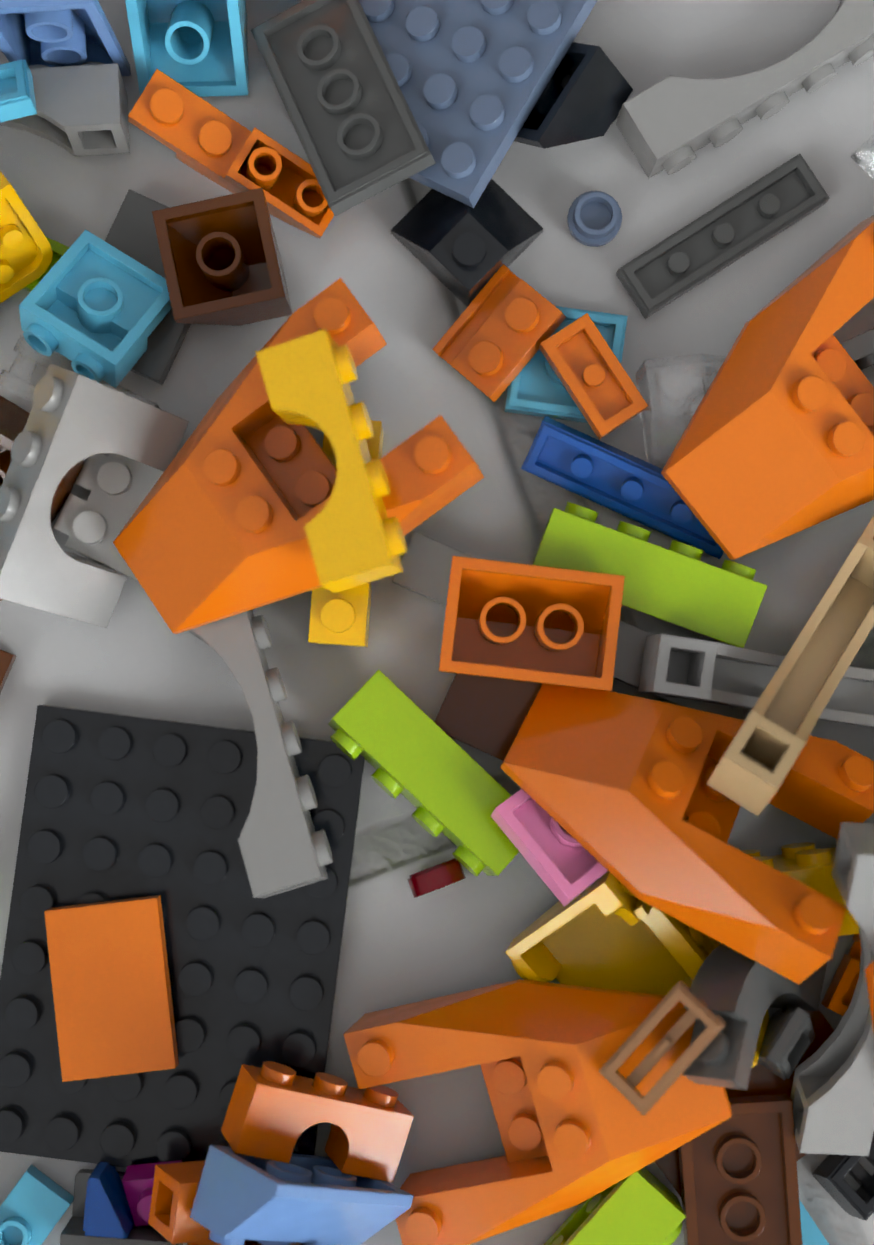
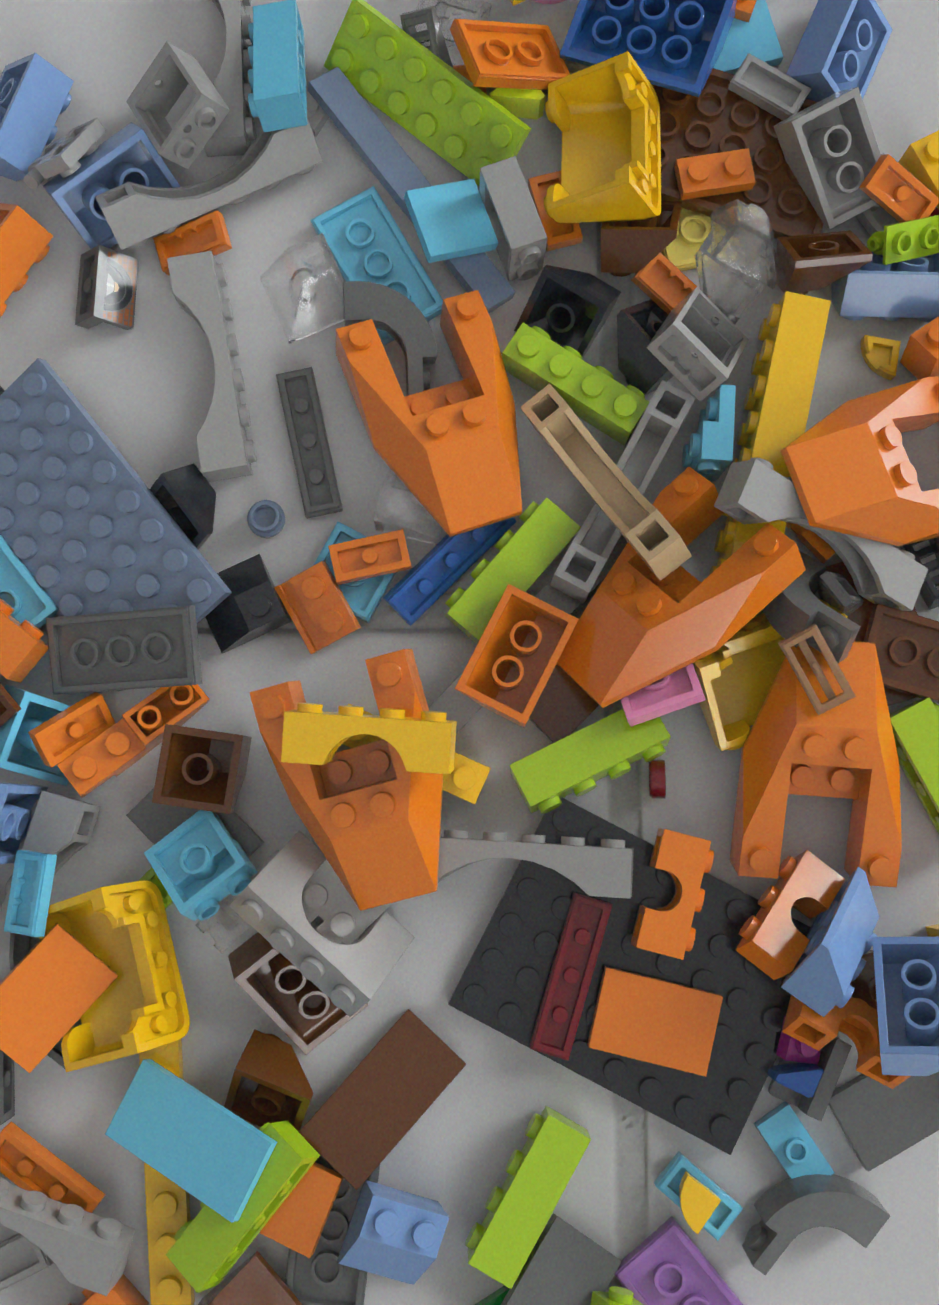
camera: 70 degrees left, 5 degrees down
(129, 854) = (570, 976): none -> dark red tile
(212, 70) = (71, 729): none -> orange plate
(238, 962) = (669, 928): none -> orange arch

